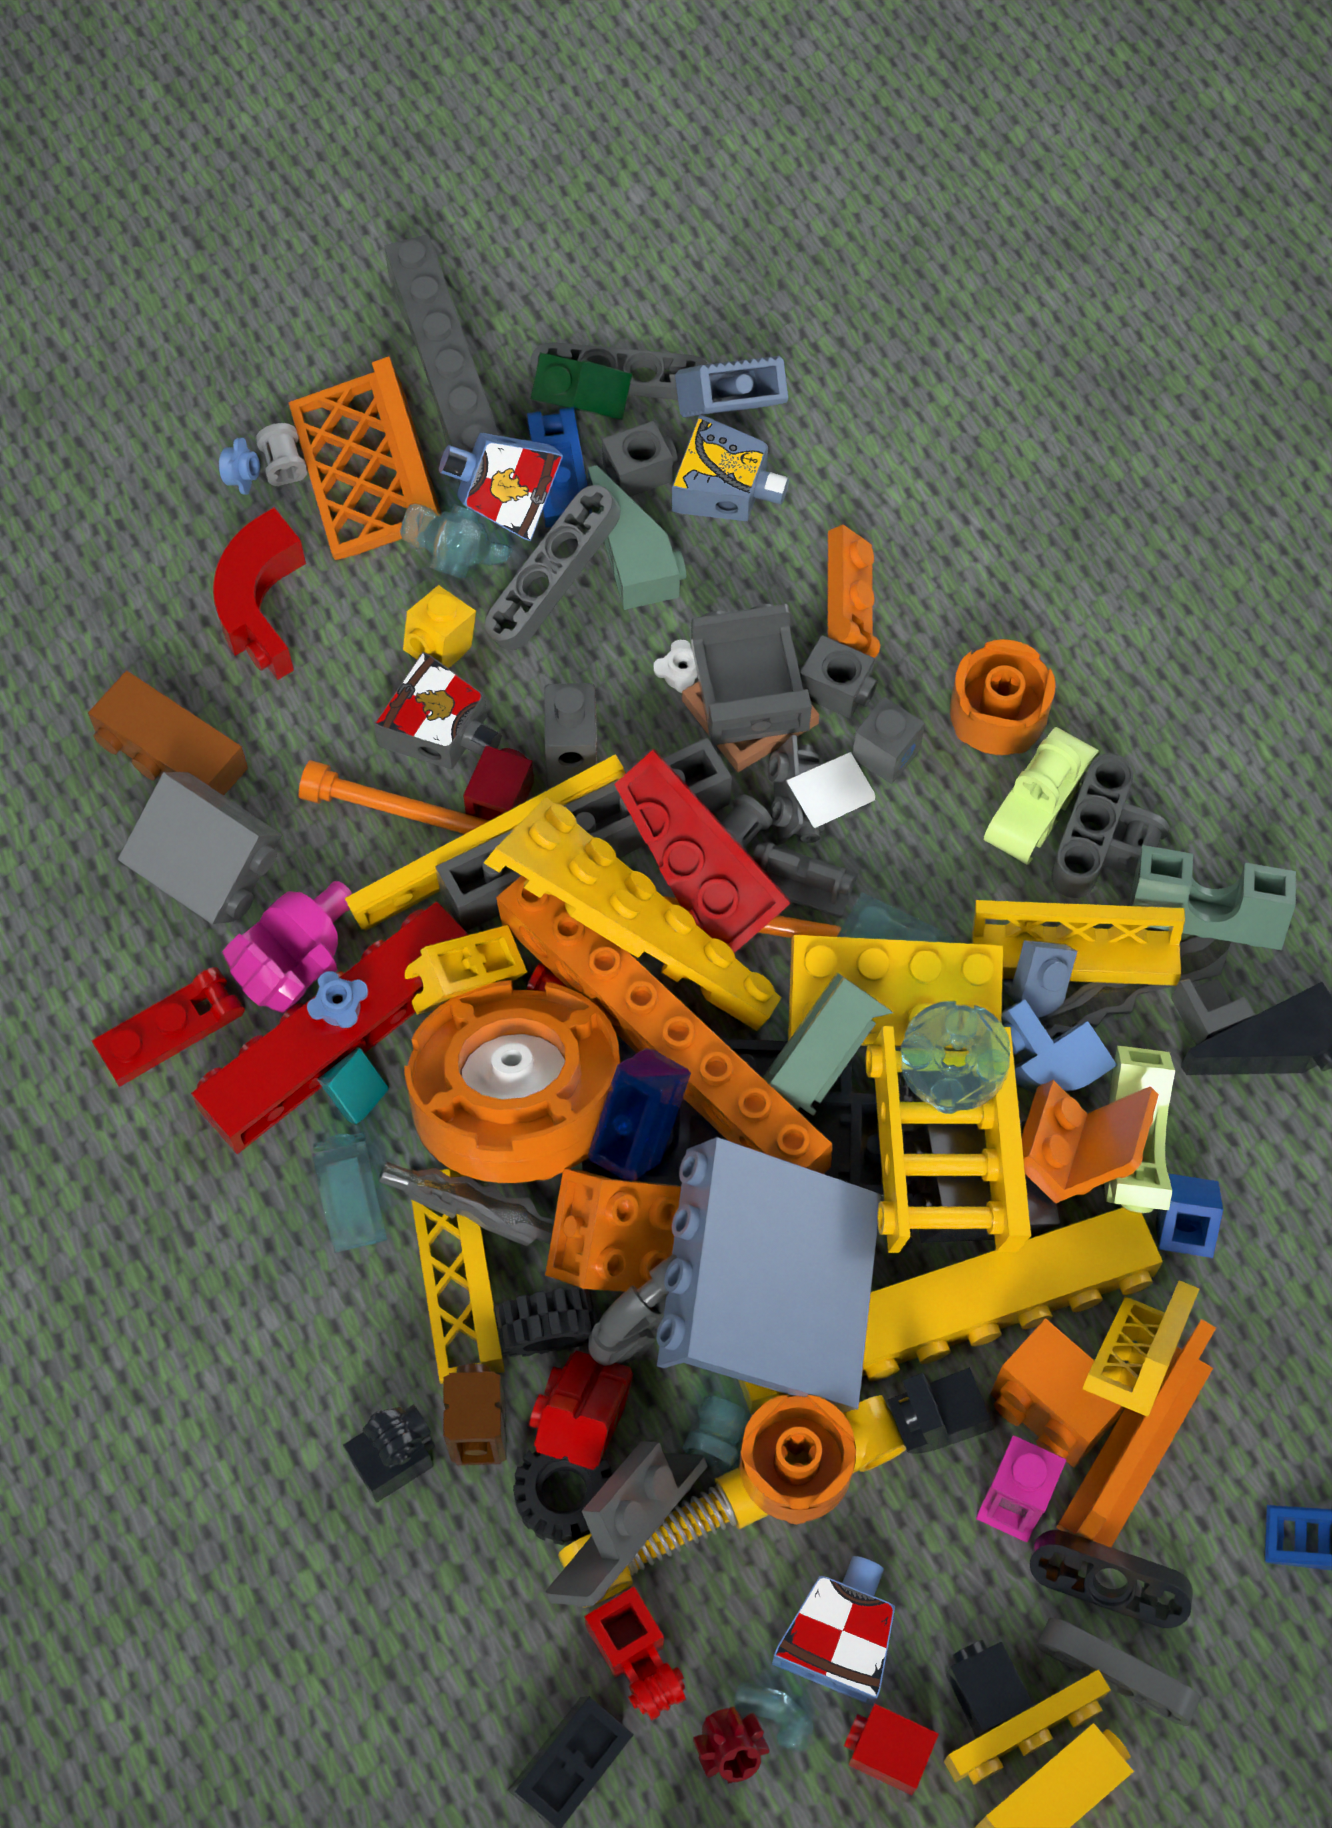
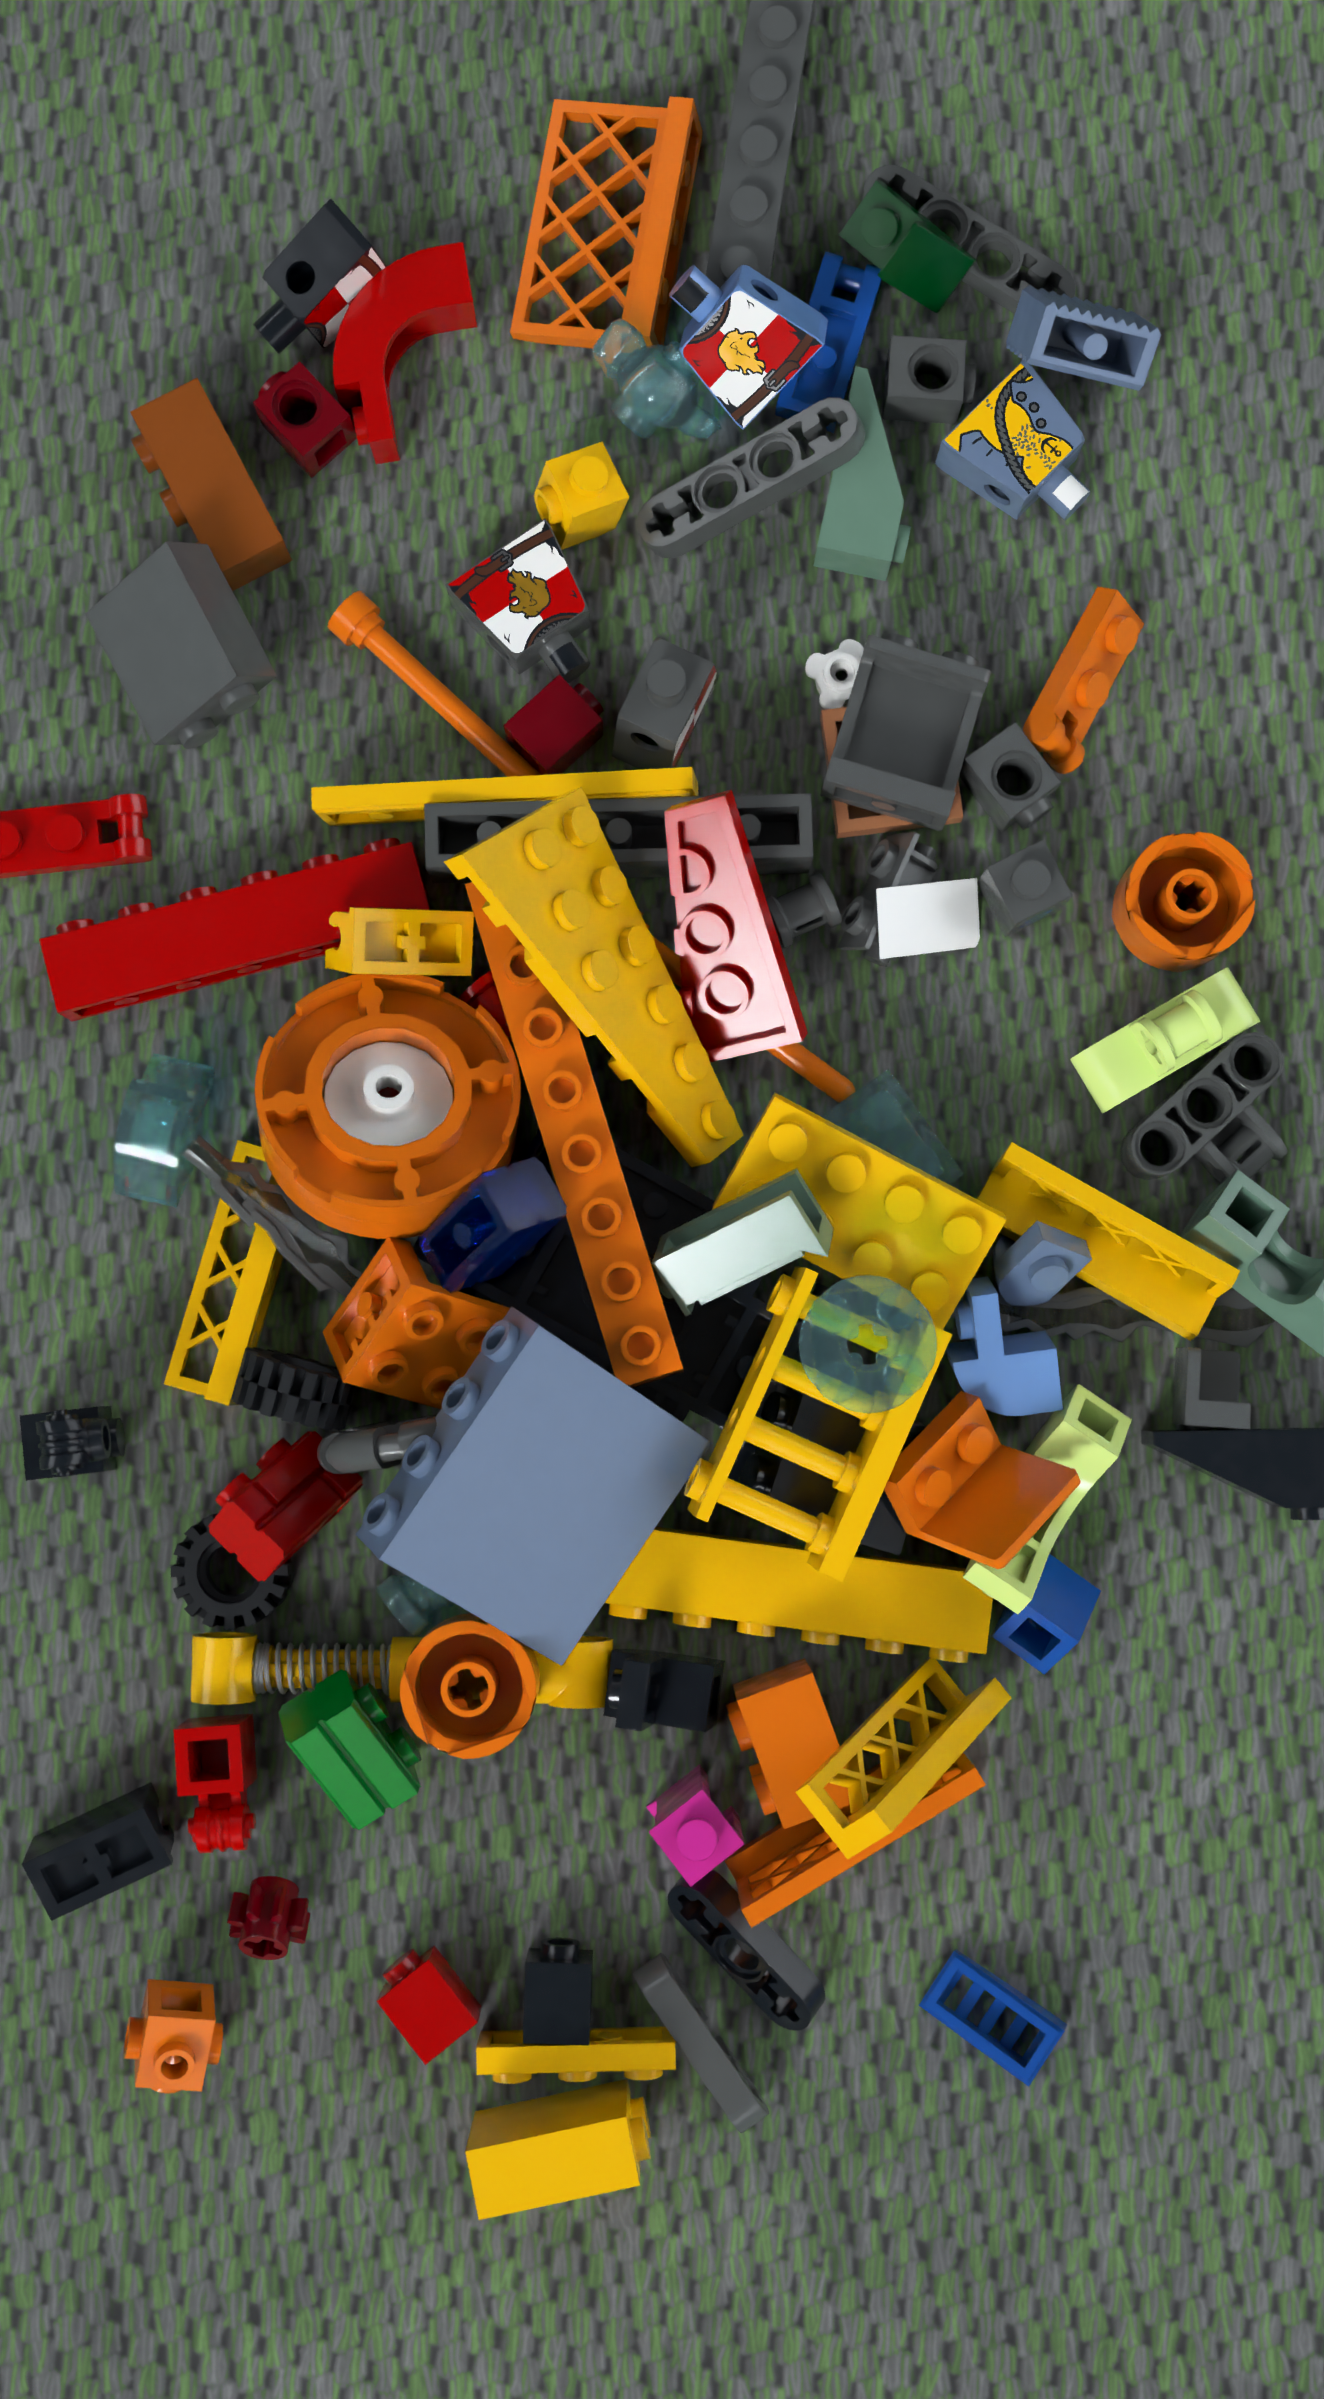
camera: 25 degrees right, 20 degrees up
(184, 572) = (317, 279): none -> black torso
(223, 684) = (316, 441): none -> dark red brick
(239, 466) = (455, 160): medium blue plate -> none
(281, 454) = (511, 168): light grey bush -> none
(288, 947) = (224, 815): dark pink piece -> none
(338, 1014) = (245, 930): medium blue plate -> none
(354, 1086) = (225, 1011): teal slope -> none
(474, 1416) = (168, 1455): reddish brown brick -> none
(623, 1520) = (262, 1655): dark grey bracket -> none
(729, 1570) = (350, 1747): none -> green brick
(779, 1707) = (338, 1901): clear light blue arm -> none
(807, 879) = (842, 1006): dark grey hinge -> none
(841, 1634) = (438, 1863): torso -> none

